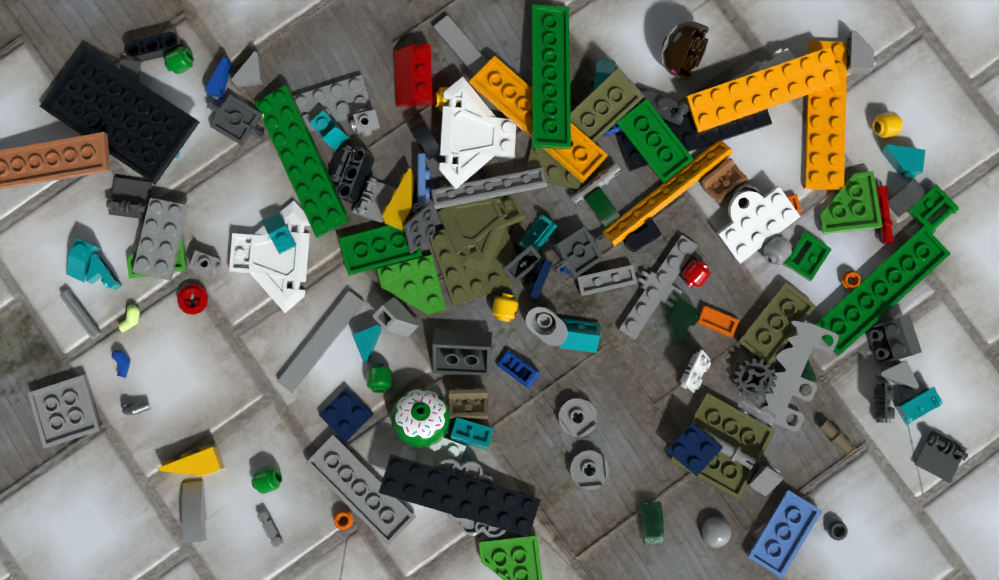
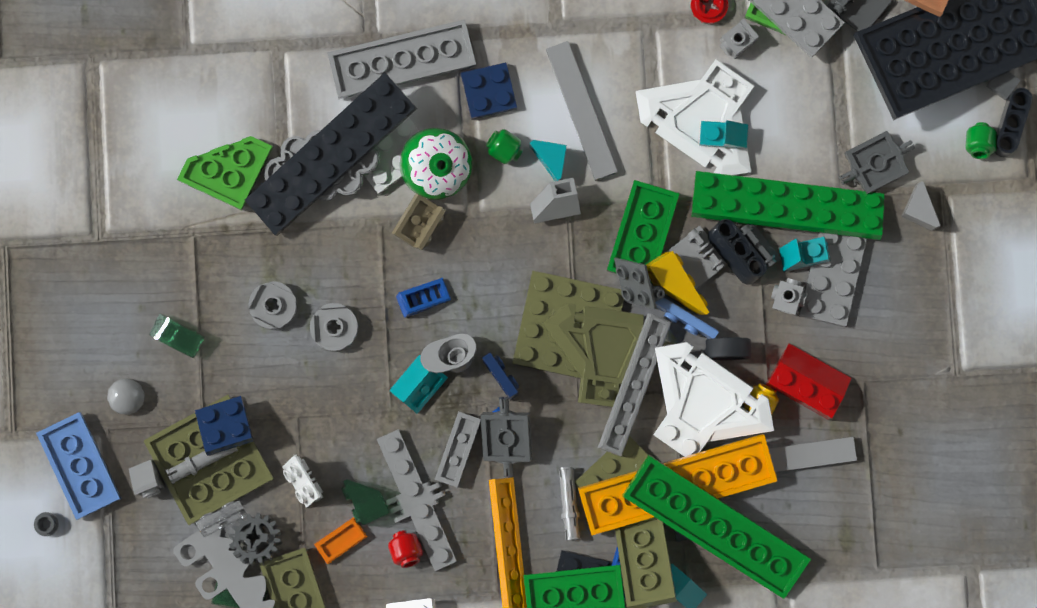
camera: 120 degrees right, 0 degrees up
(218, 82) = (929, 167): blue slope -> none
(343, 526) = (382, 16): orange plate -> none
(415, 284) = (581, 245): bright green plate -> none
(462, 352) = (478, 249): dark grey slope -> none
(472, 434) = (386, 207): teal hinge -> none
(505, 307) = (496, 322): yellow head -> none
(523, 263) = (530, 368): dark grey slope -> none
(538, 233) = (552, 405): teal hinge -> none
(602, 207) = (538, 494): dark green slope -> none
(639, 240) = (478, 511): black leg -> none
(837, 437) = (139, 587): dark tan pin -> none

